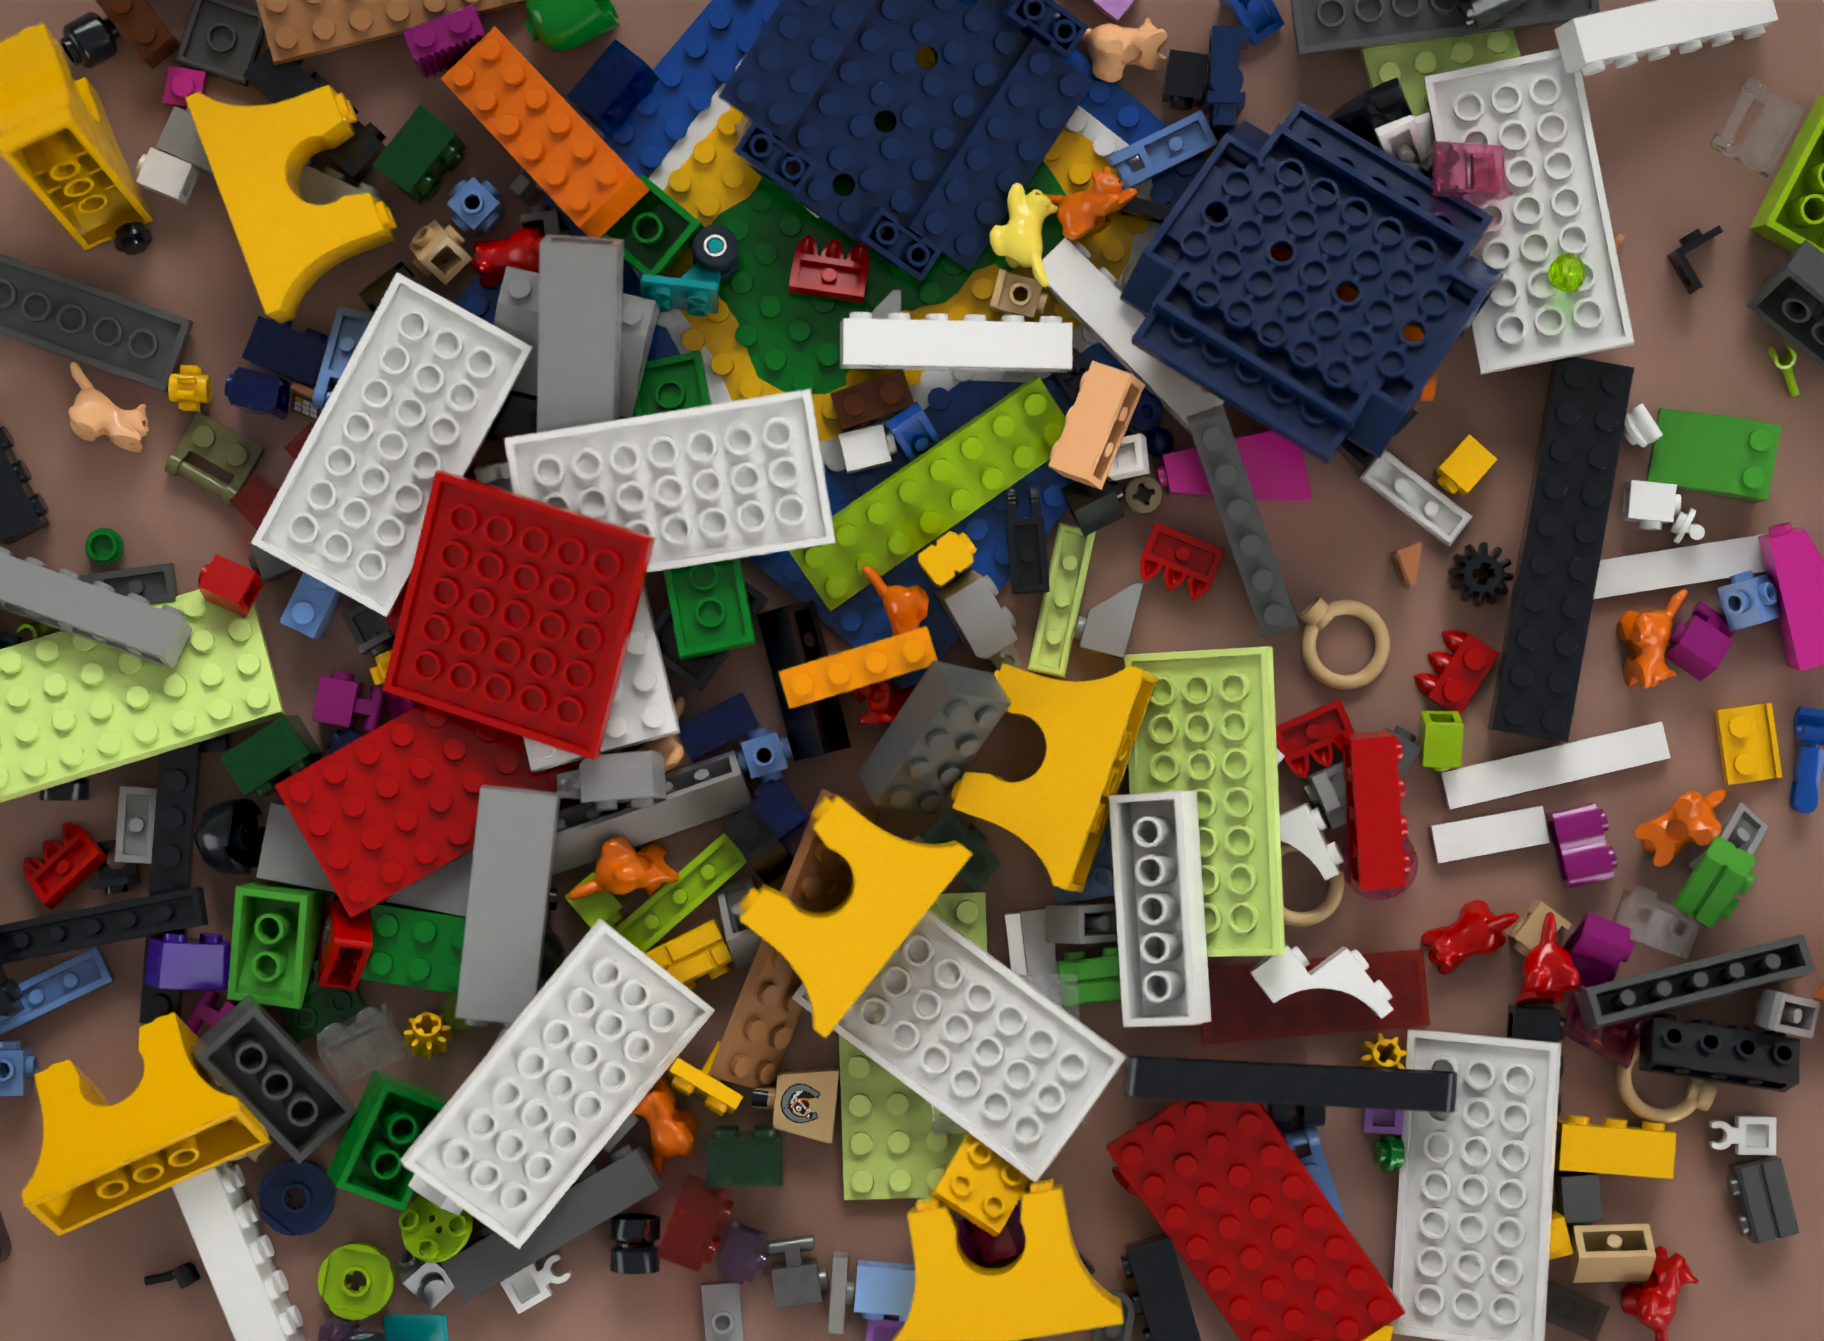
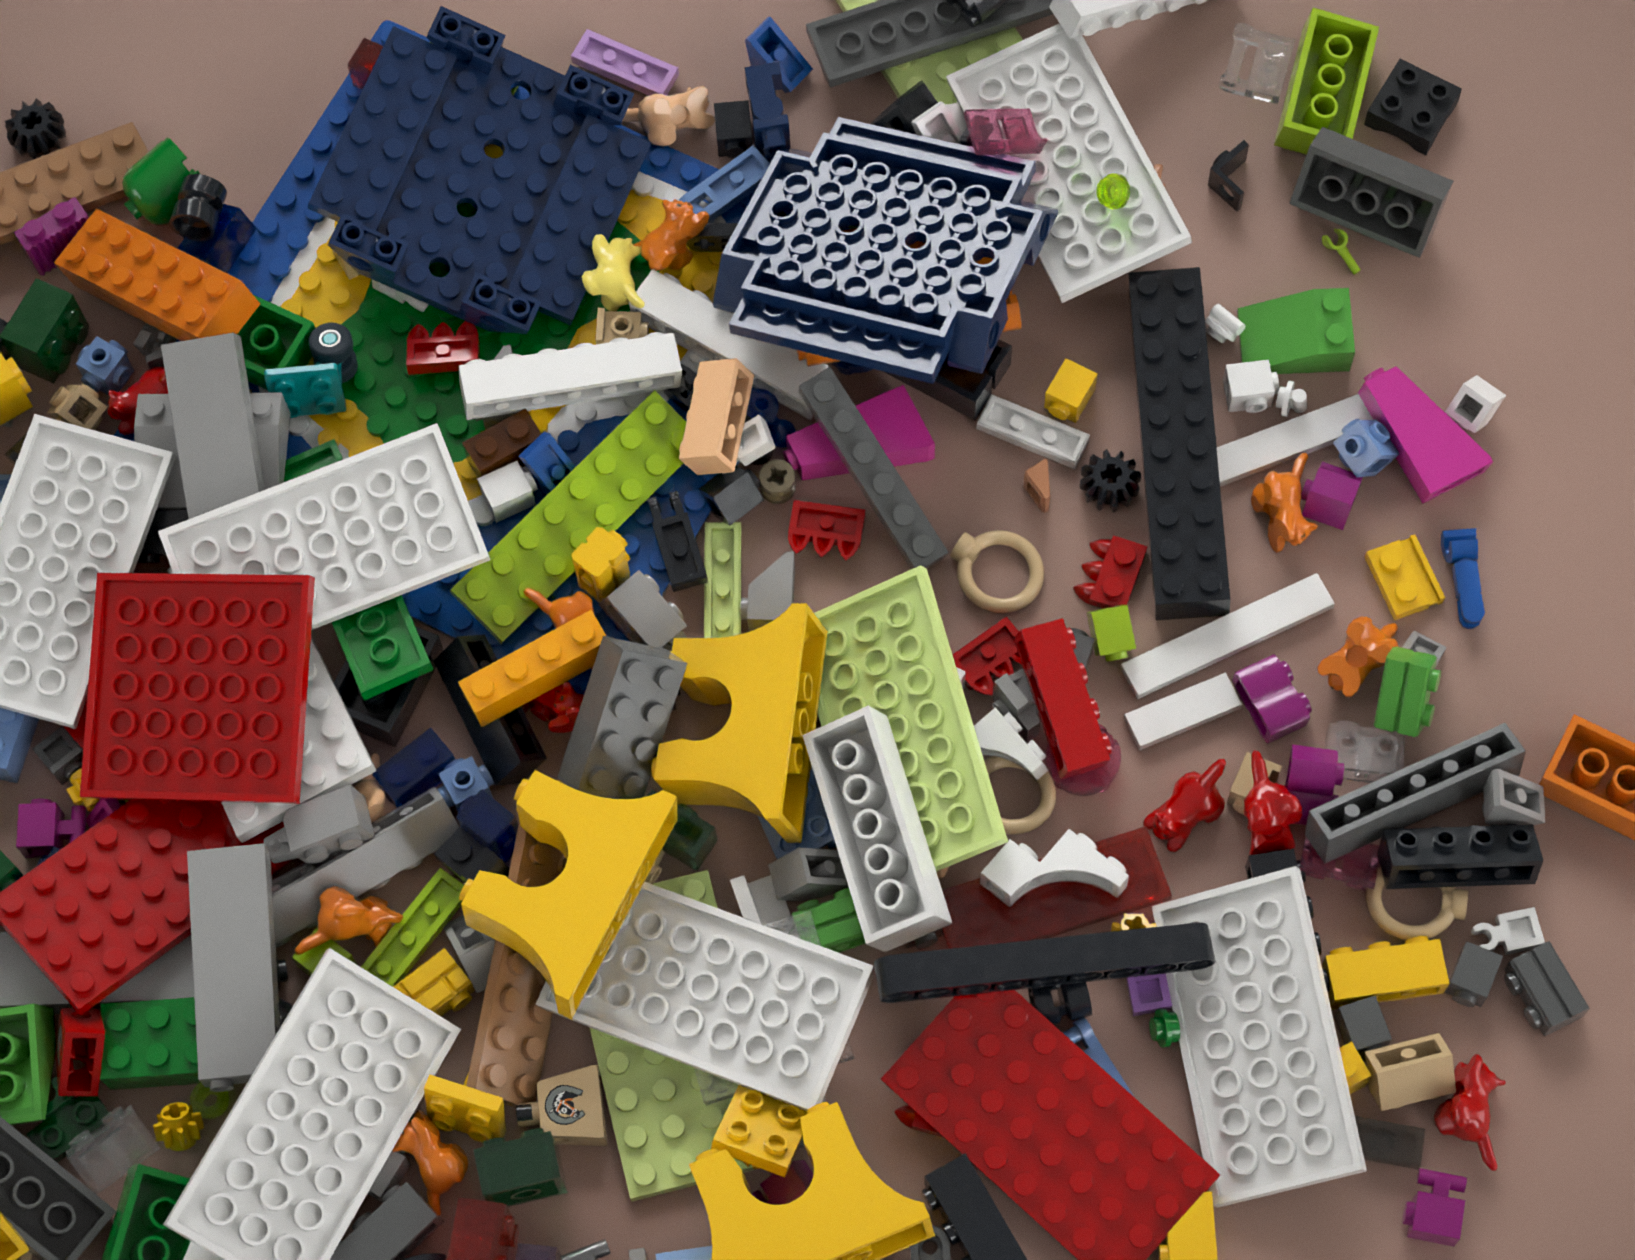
camera: 15 degrees left, 20 degrees down
(601, 60) = (198, 207): none -> black wheel
(1698, 1170) = (1473, 975): none -> dark grey brick

